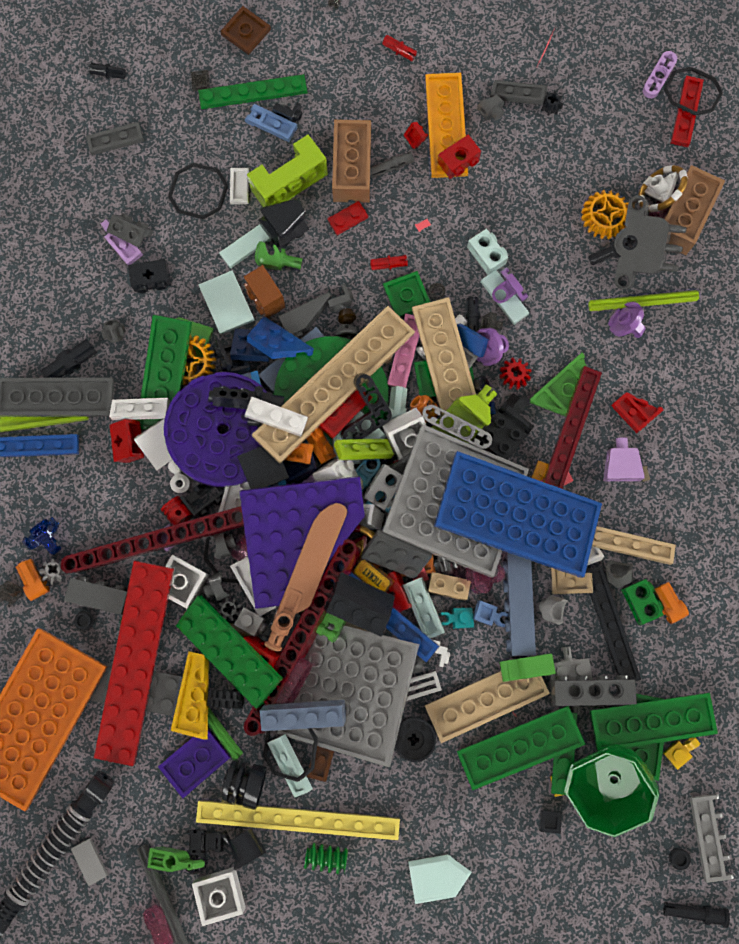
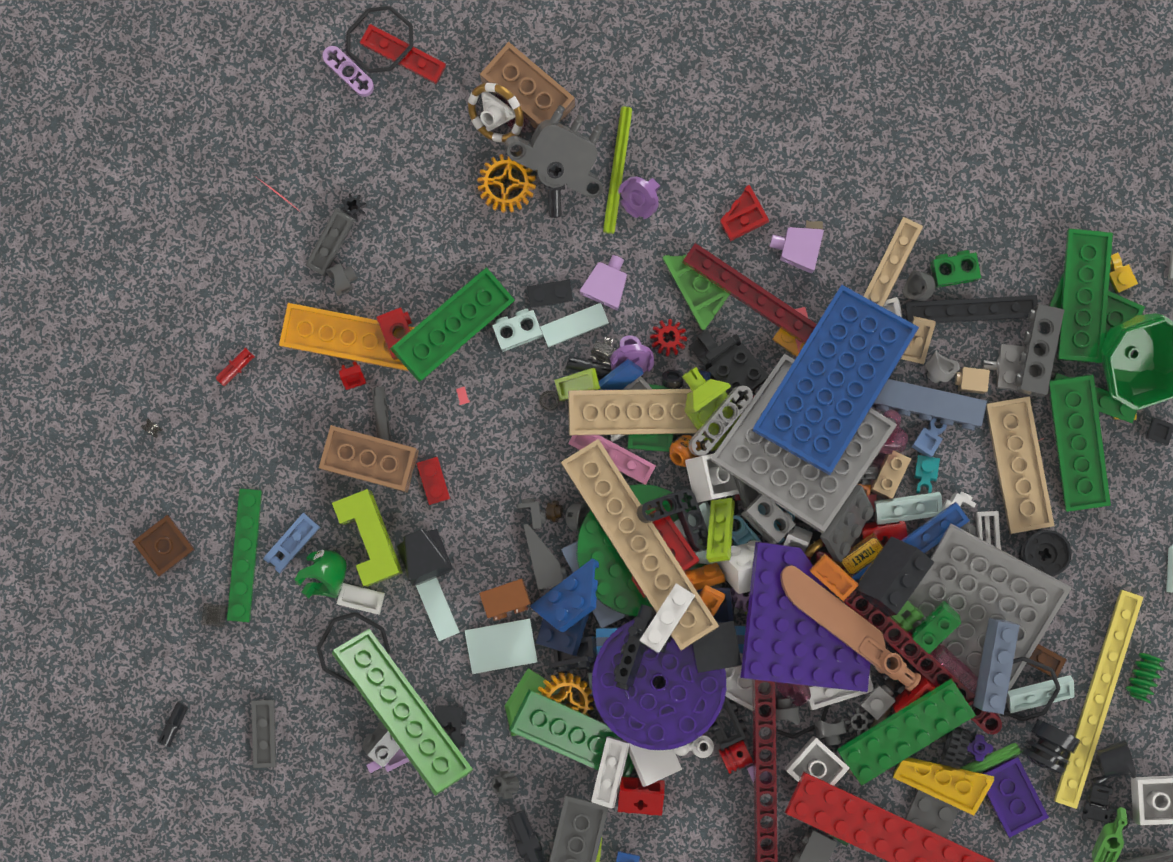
camera: 75 degrees left, 5 degrees up
(152, 232) = (402, 712): none -> bright green plate
(225, 722) = (979, 754): none -> dark purple plate
(253, 151) = (328, 568): none -> green piece
(277, 260) = (469, 575): bright green piece -> none
(285, 112) = (283, 522): black bracket -> none
(325, 655) = (936, 627): none -> green brick
(345, 551) = (834, 577): none -> orange plate
(388, 262) = (500, 447): red axle -> none
(398, 401) = (670, 478): light aqua piece -> none
(406, 293) = (544, 436): green plate -> none
(461, 311) = (579, 381): none -> lime tile
(478, 195) = (452, 324): none -> green plate
(510, 286) = (567, 316): medium lavender tile -> none
(525, 271) = (550, 293): none -> black plate
(527, 667) = (998, 413): bright green piece -> none
(546, 312) = (606, 283): none -> lavender torso
(550, 639) = (972, 380): none -> tan brick
(672, 606) = (966, 239): orange piece -> none

